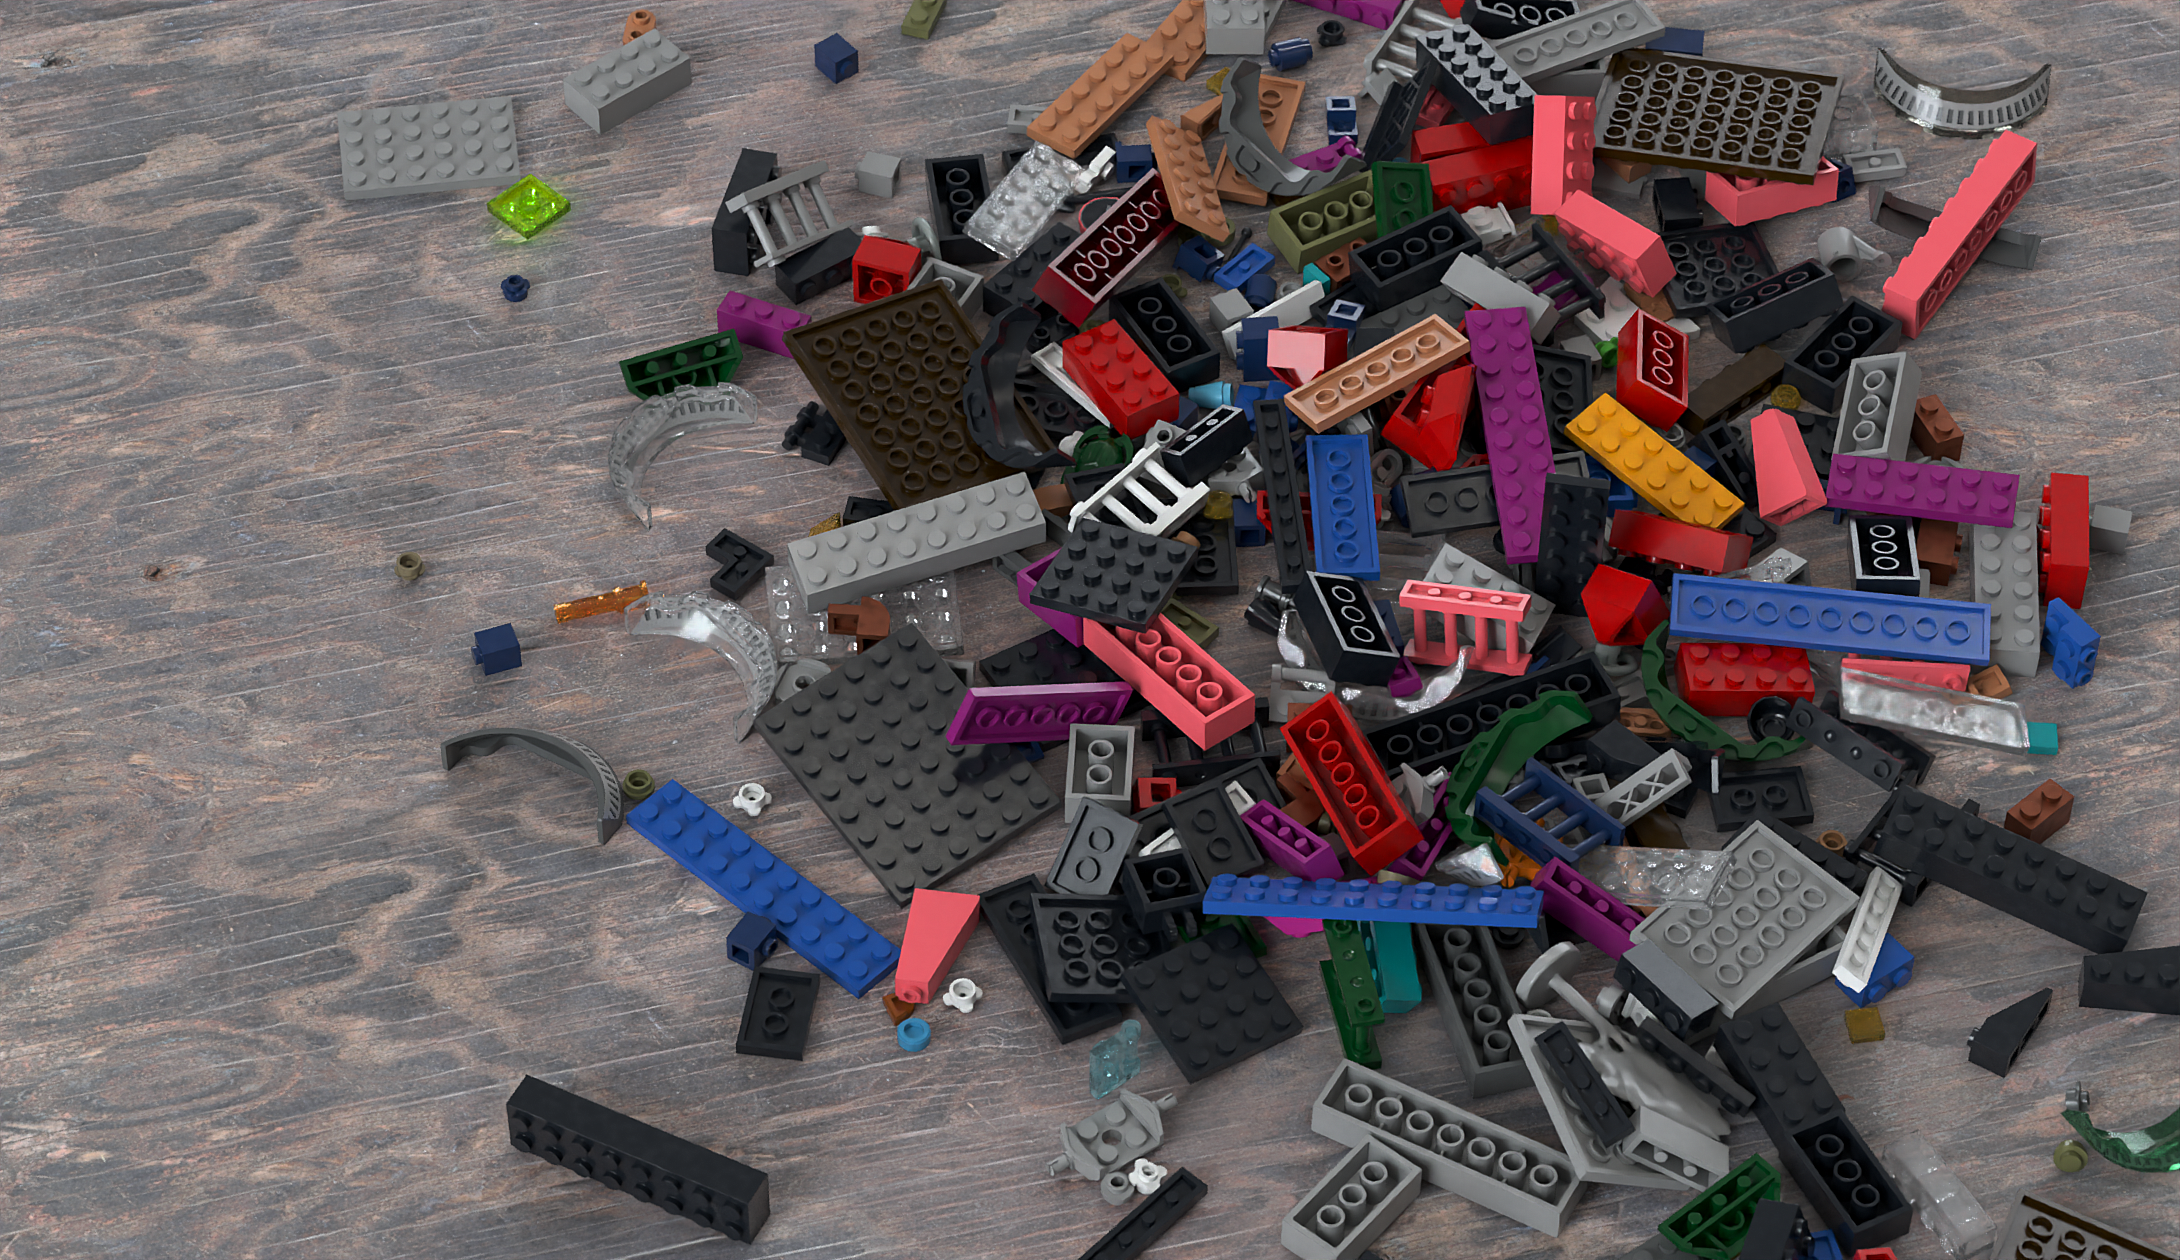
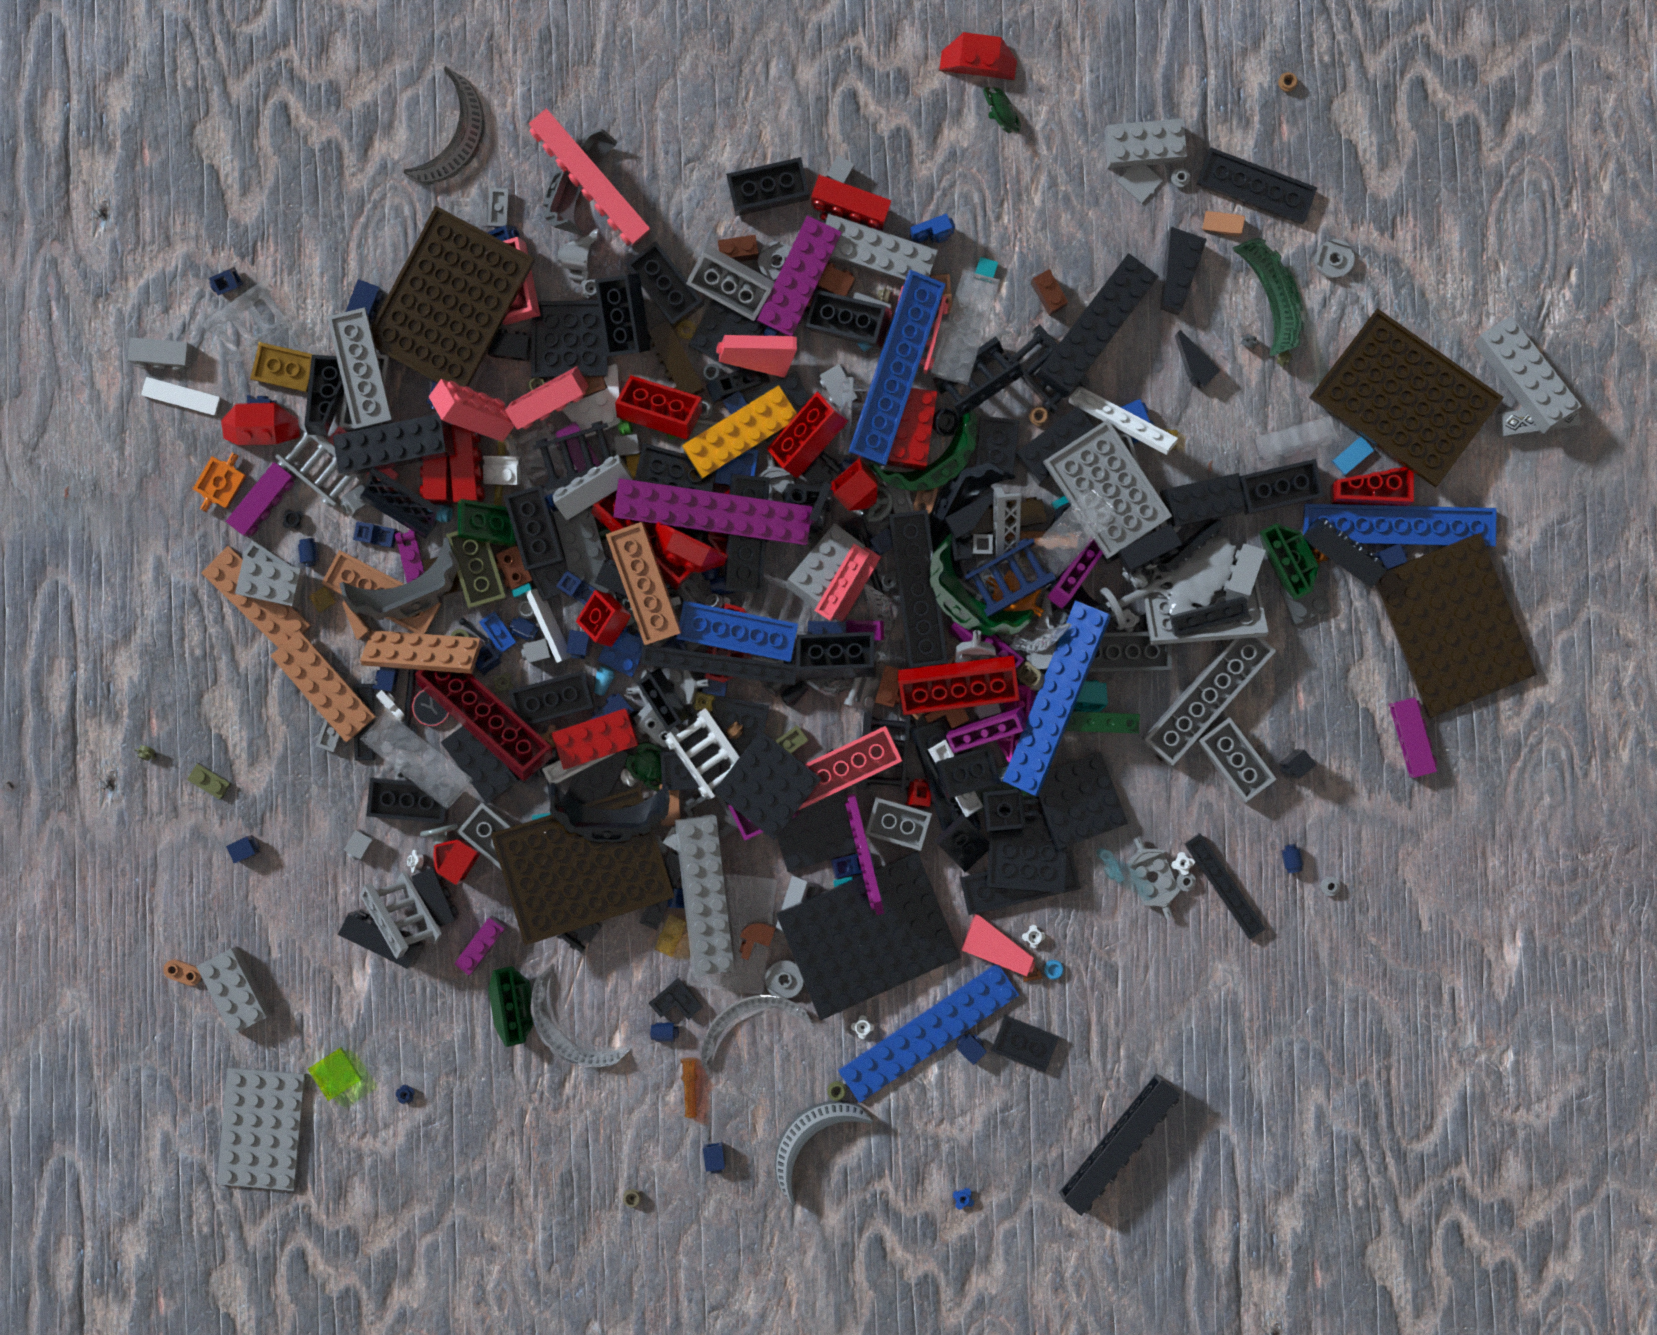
camera: 80 degrees left, 40 degrees up
(496, 987) = (963, 1203): none -> blue plate
(683, 557) = (664, 1032): none -> dark blue brick
(2042, 438) = (768, 186): none -> black brick

